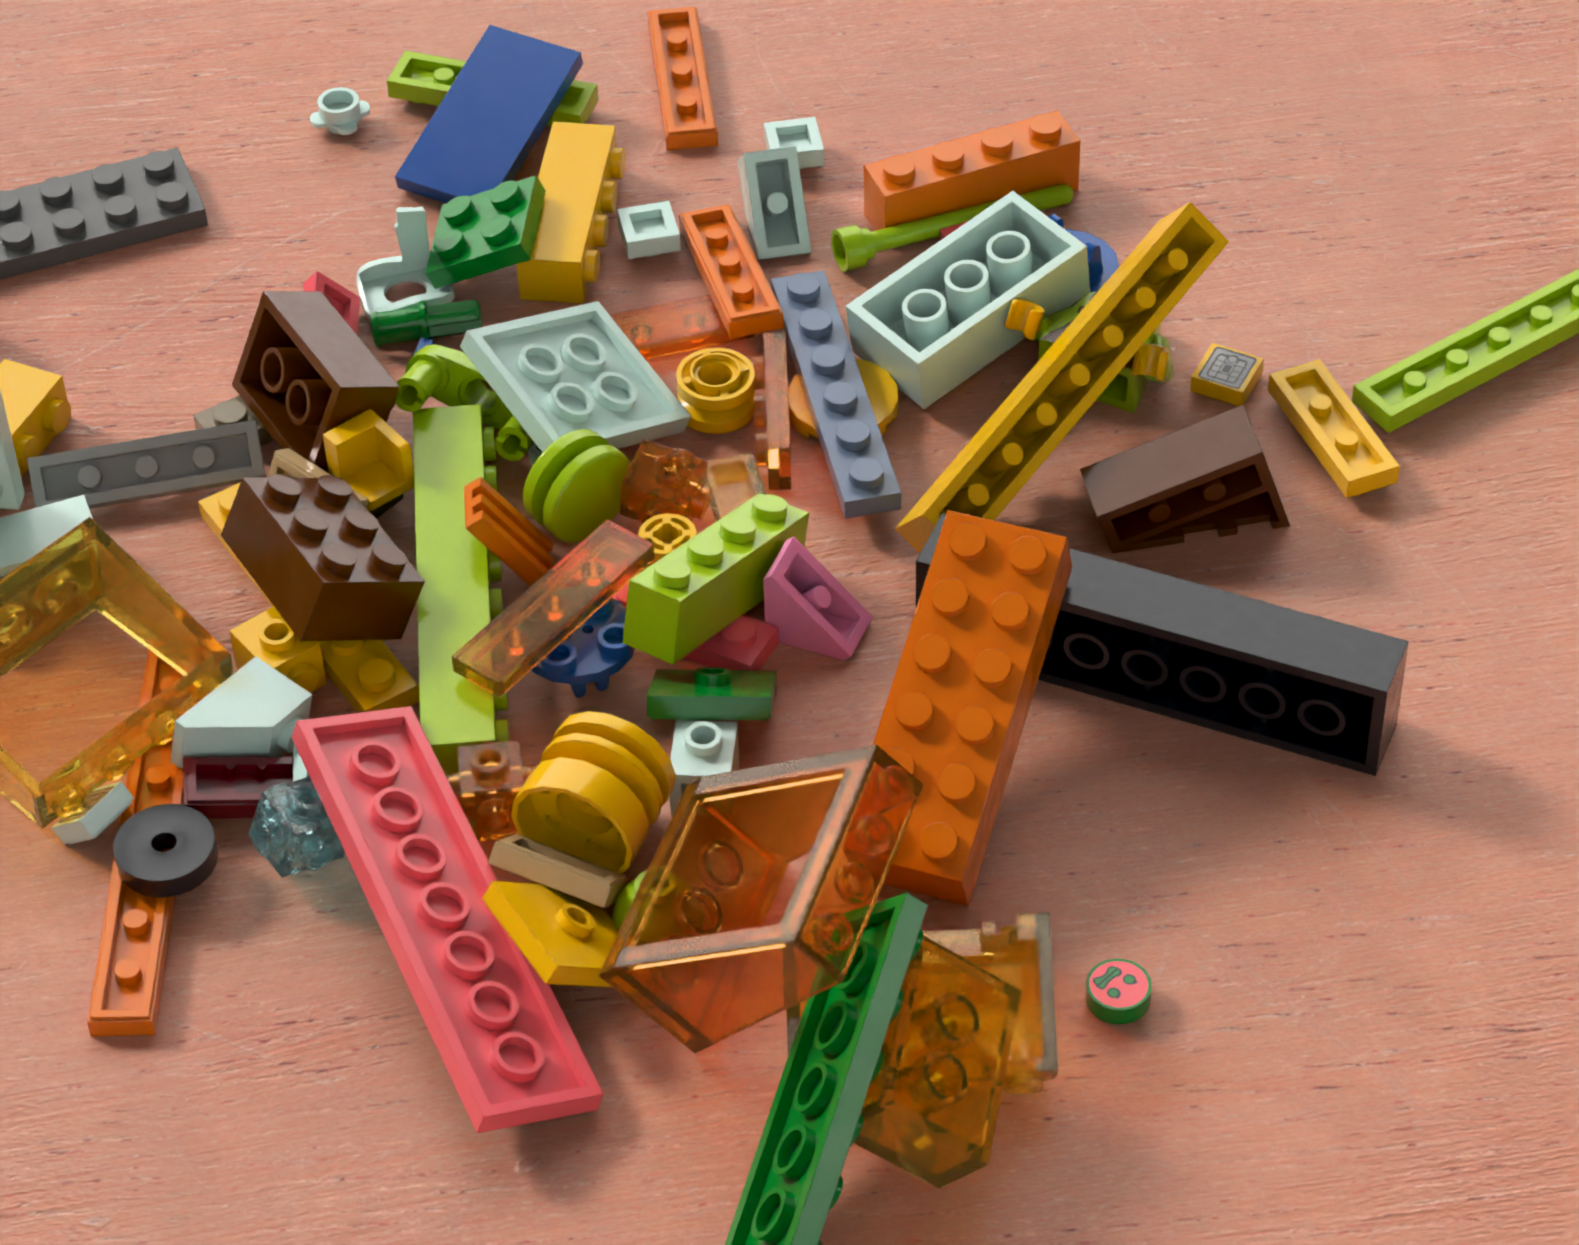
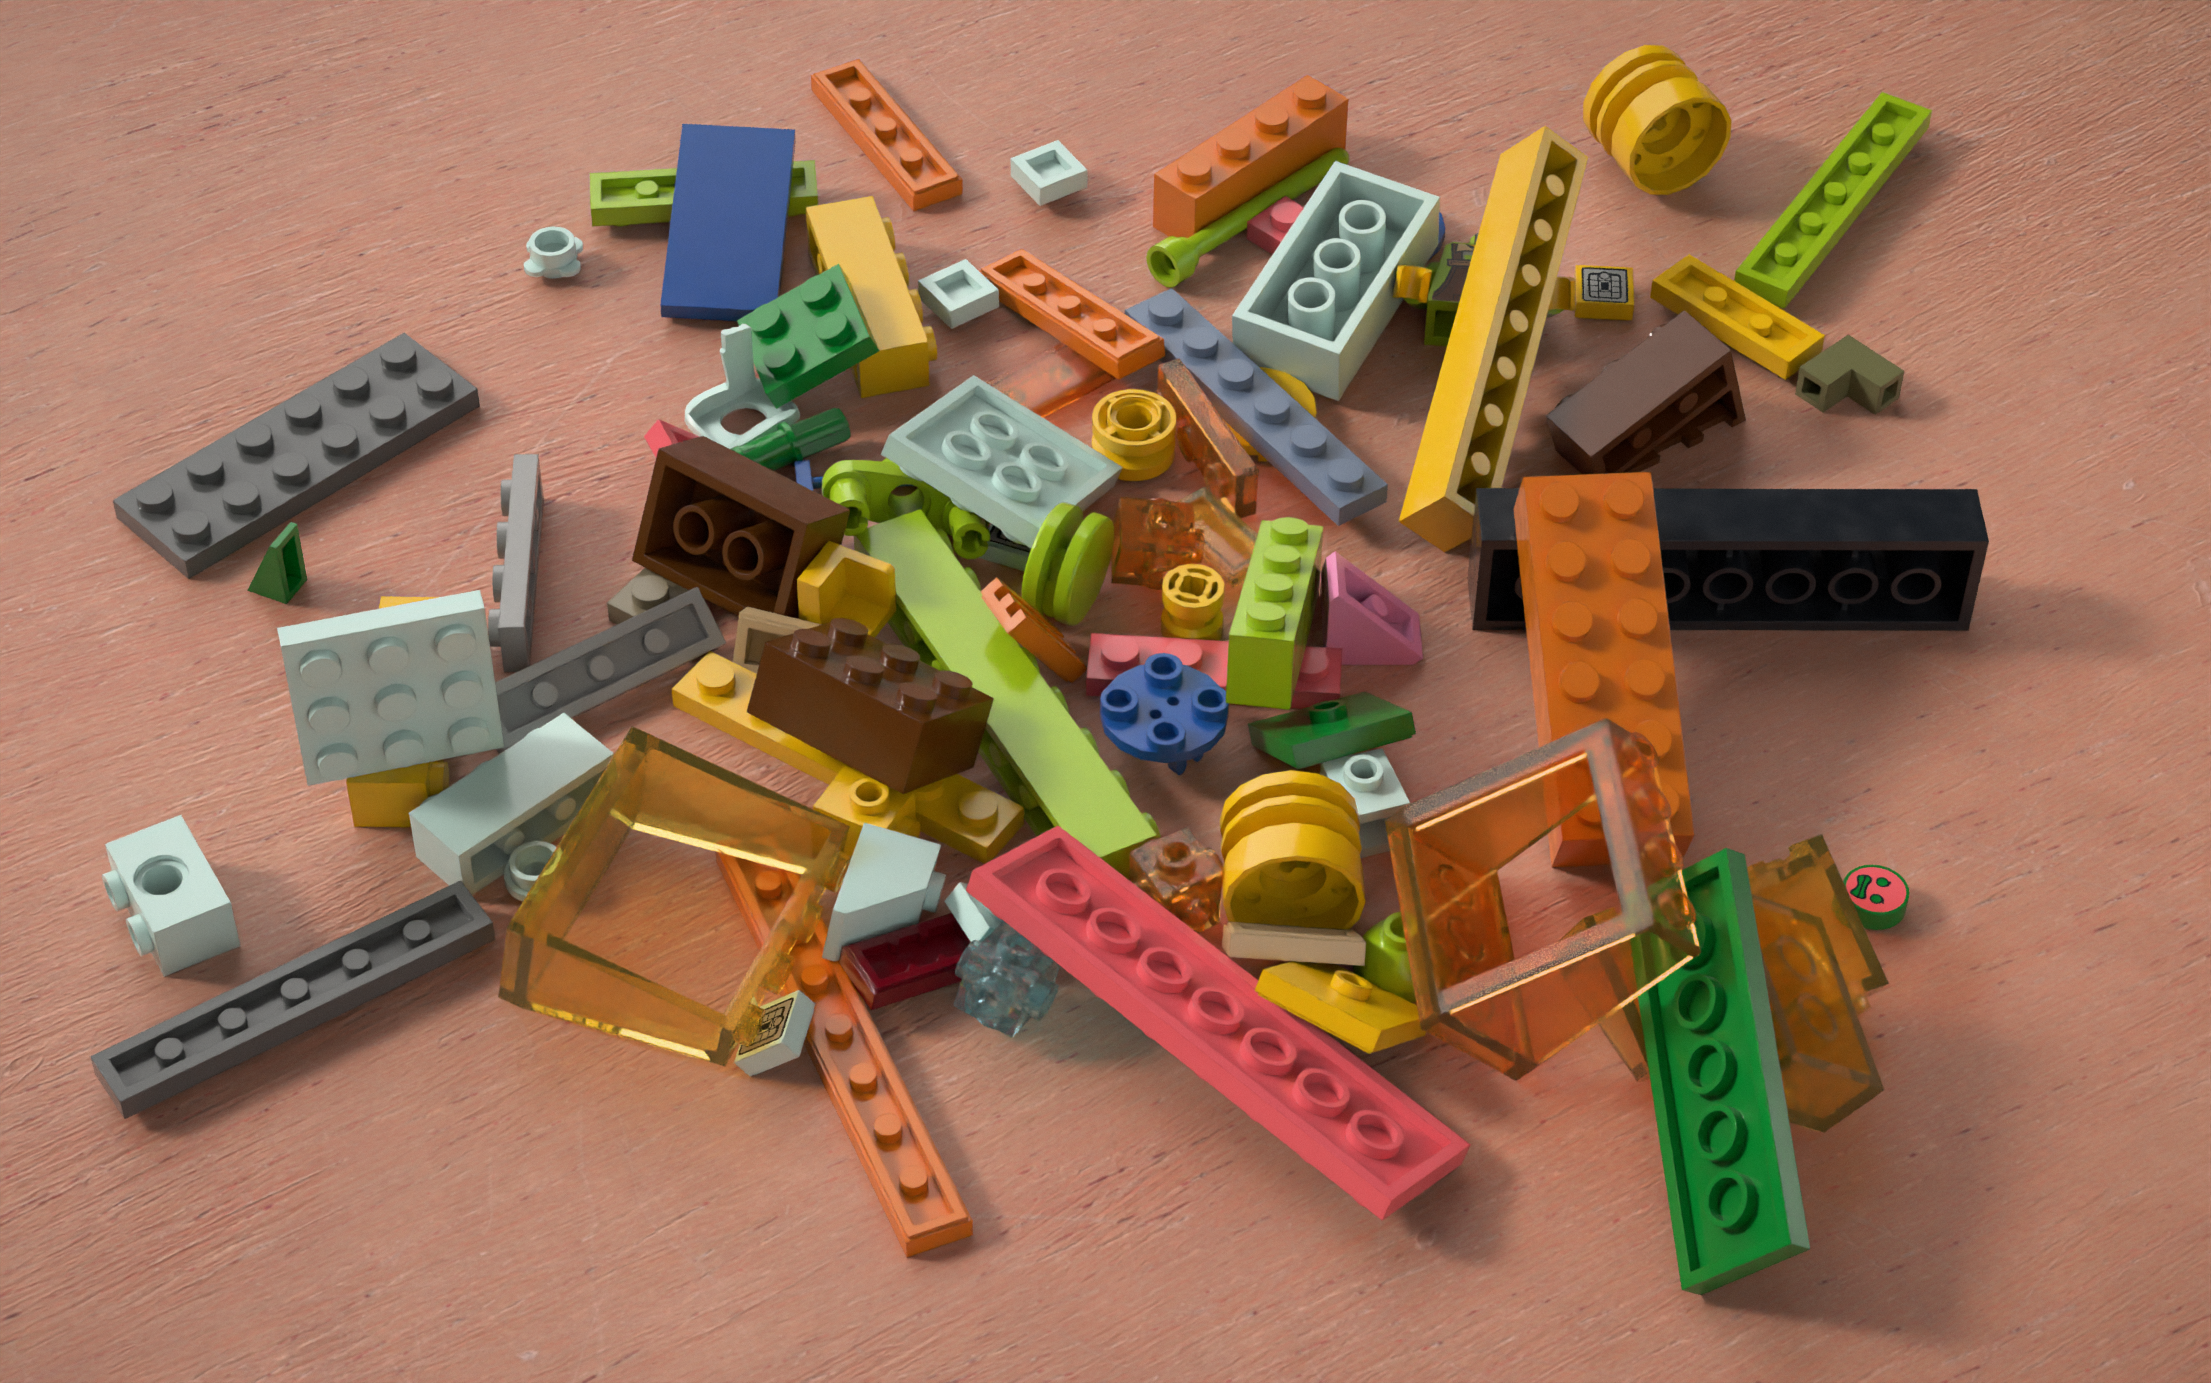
camera: 25 degrees left, 0 degrees up
(144, 361) = (519, 547): none -> light grey plate
(168, 872) = (886, 1070): black piece -> none
(553, 608) = (1138, 688): clear orange tile -> none
(774, 202) = (1071, 232): light aqua slope -> none
(1358, 228) = (1656, 119): none -> yellow wheel
(1404, 505) = (1851, 372): none -> olive piece

